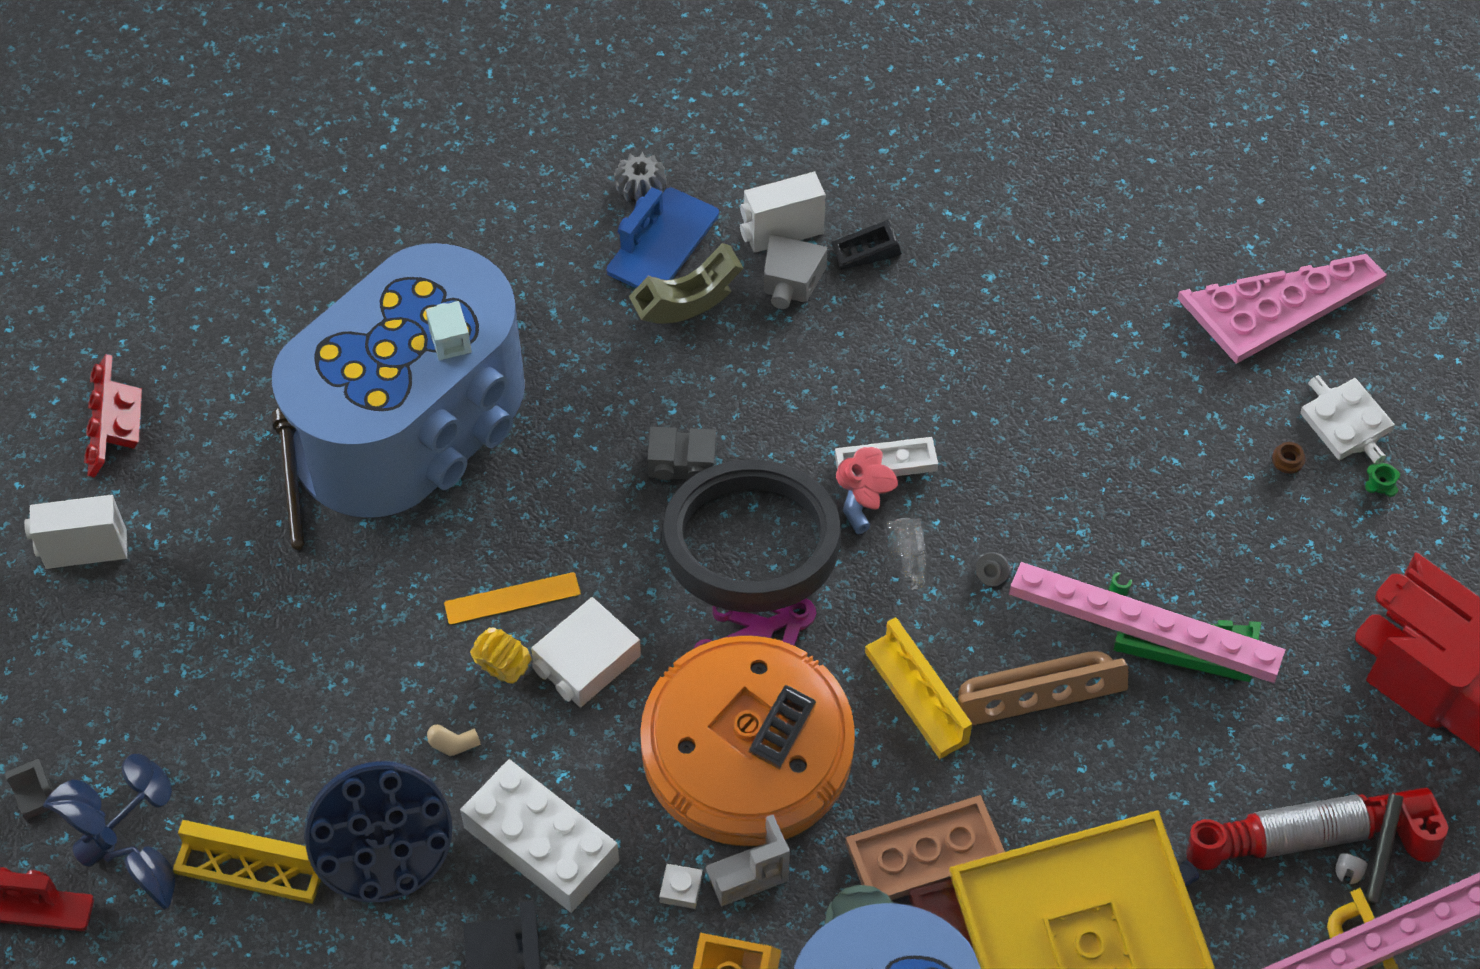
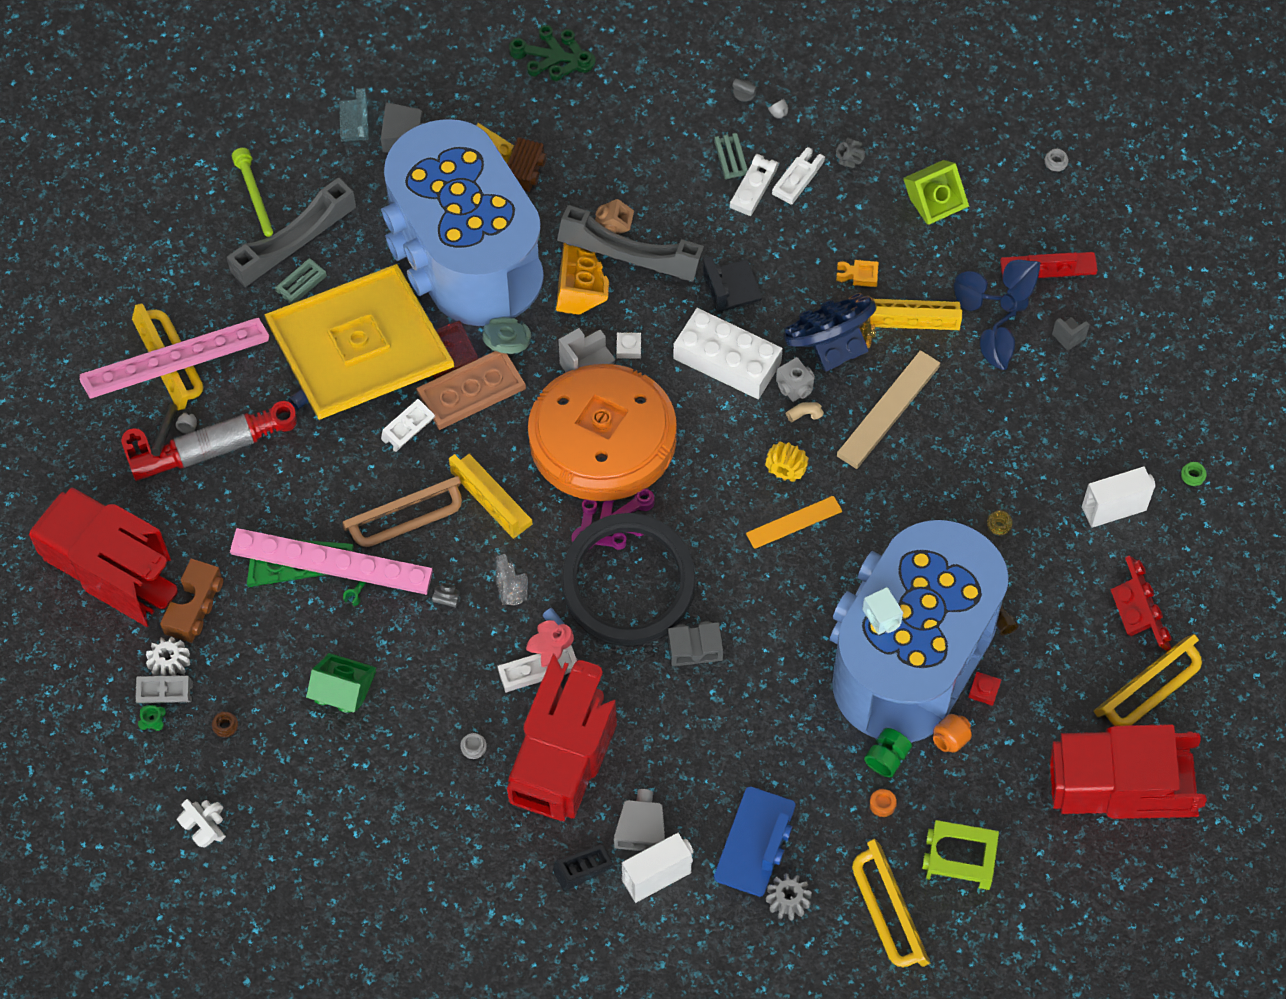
camera: 170 degrees right, 5 degrees up
(138, 325) = (1108, 706): none -> yellow piece
(219, 214) = (1126, 773): none -> red piece
(243, 538) = (999, 516): none -> clear yellow plate
(301, 937) = (863, 273): none -> light orange plate
(332, 727) = (888, 409): none -> tan tile
(403, 188) = (936, 865): none -> lime panel
(454, 773) = (795, 379): none -> light grey brick
(505, 258) = (883, 802): none -> orange tile
(520, 157) = (919, 954): none -> yellow piece
(585, 652) = (729, 480): white brick -> none
(690, 295) = (726, 783): olive arch -> none
(796, 701) = (575, 428): black slope -> none
(869, 345) = (562, 741): none -> red piece
(978, 387) = (473, 746): none -> light grey plate
(1026, 802) = (407, 425): none -> white hinge
(1138, 479) = (340, 682): none -> slope
(1275, 304) = (243, 858): bright pink wing -> none
(1314, 351) = (204, 818): none -> white hips
(1324, 630) = (186, 620): none -> dark orange arch
(1347, 419) = (177, 767): white plate -> none
(1365, 540) = (173, 649): none -> white gear
(1368, 502) = (163, 689): none -> light grey hinge

